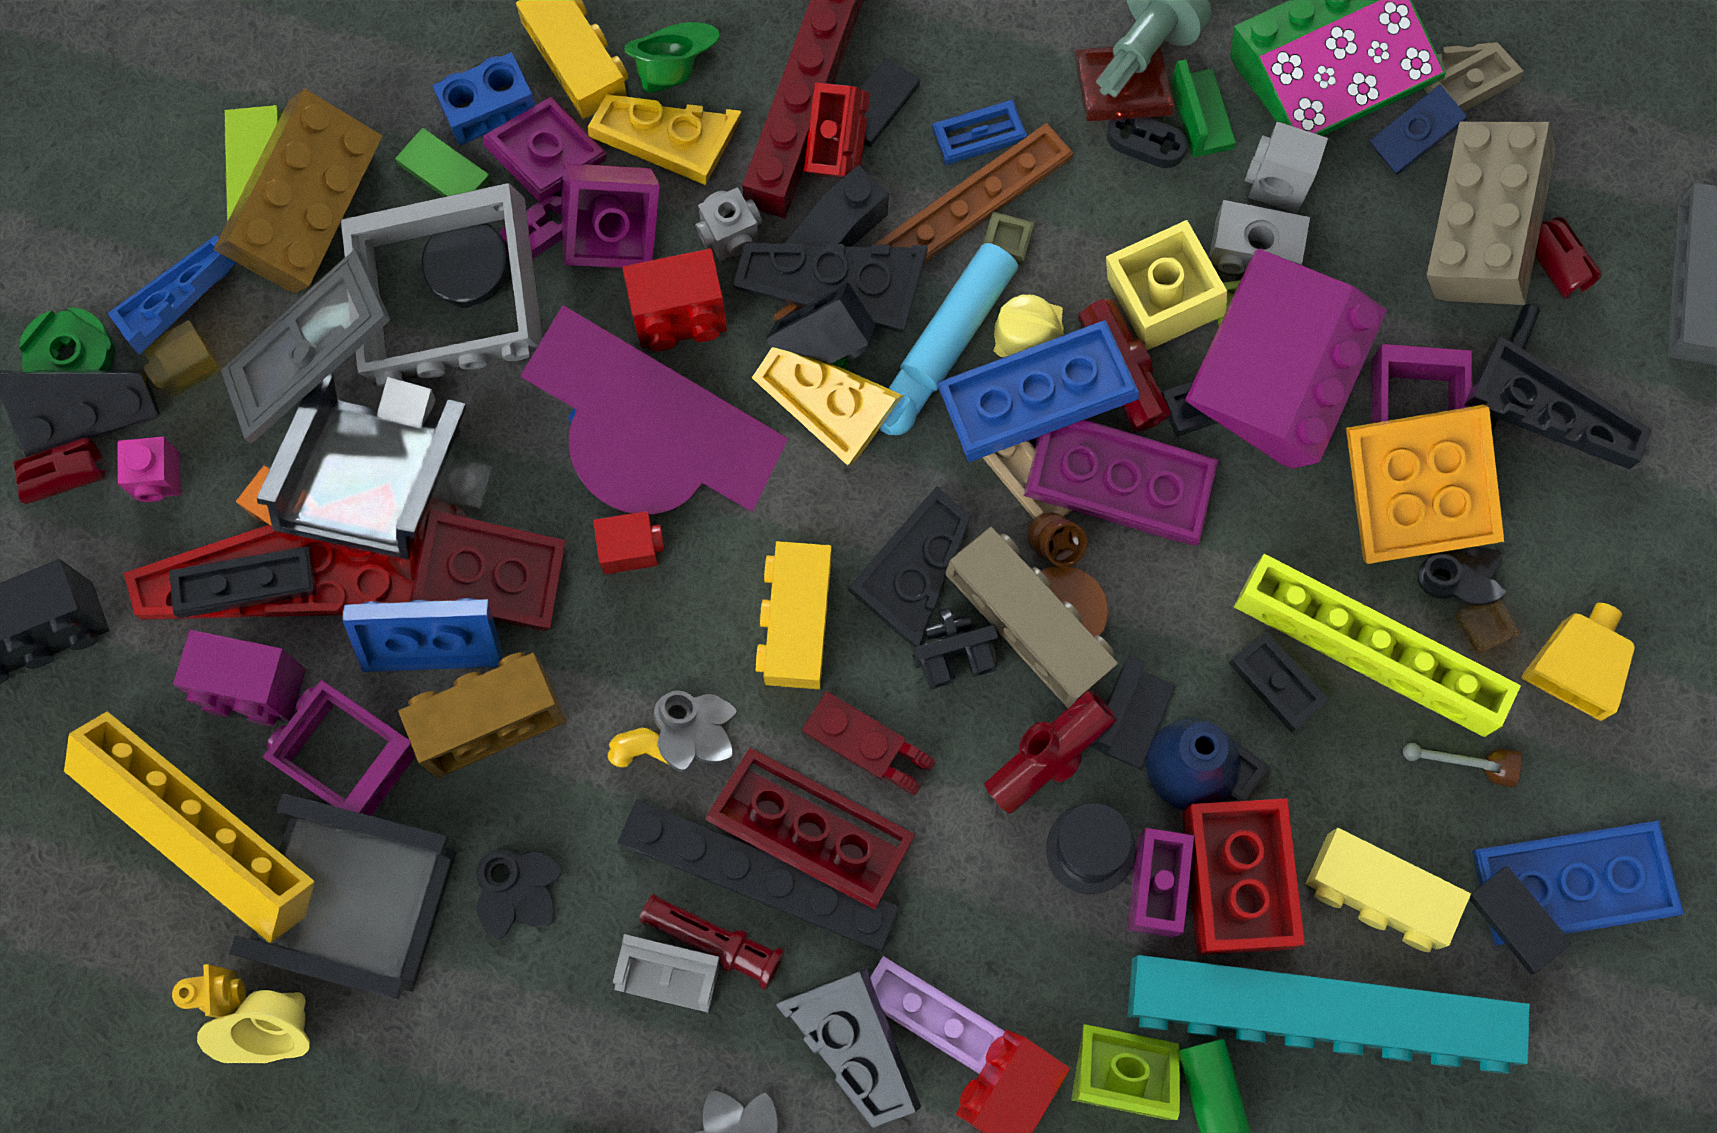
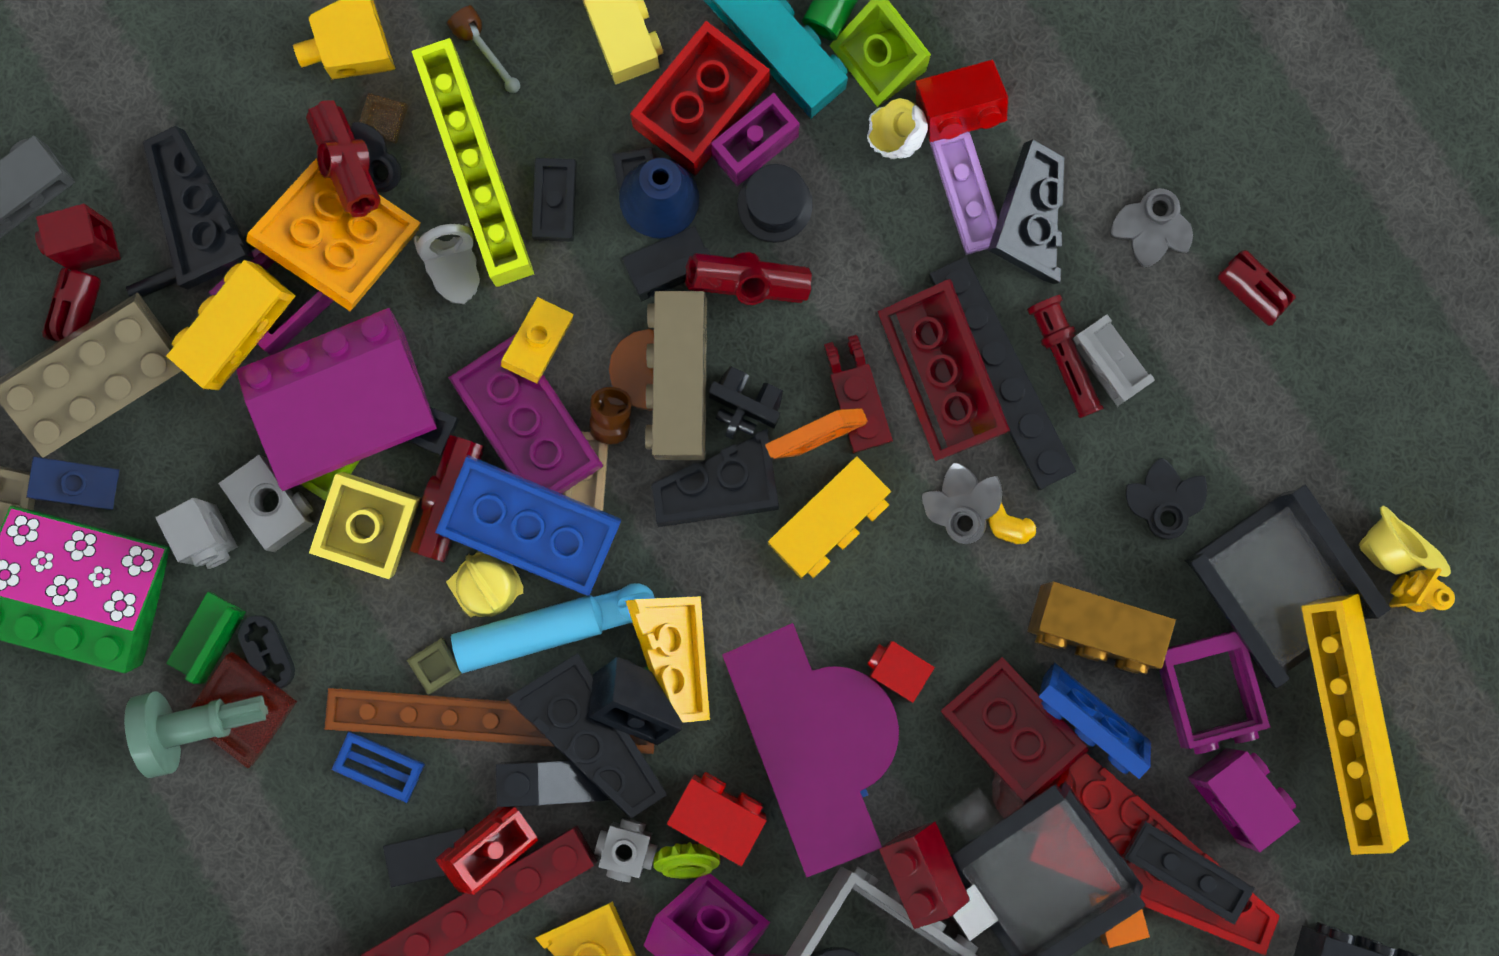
camera: 135 degrees left, 10 degrees up
(466, 385) = (924, 875): none -> dark red brick
(682, 243) = (685, 861): none -> lime gear
(869, 664) = (816, 433): none -> orange tile
(1046, 1011) = (897, 129): none -> light yellow hair
(1176, 549) = (537, 340): none -> yellow plate
(1308, 547) = (450, 262): none -> light grey piece
(1427, 333) = (229, 325): none -> yellow brick
(1481, 549) = (343, 158): none -> dark red piece
(1614, 302) = (77, 238): none -> dark red brick

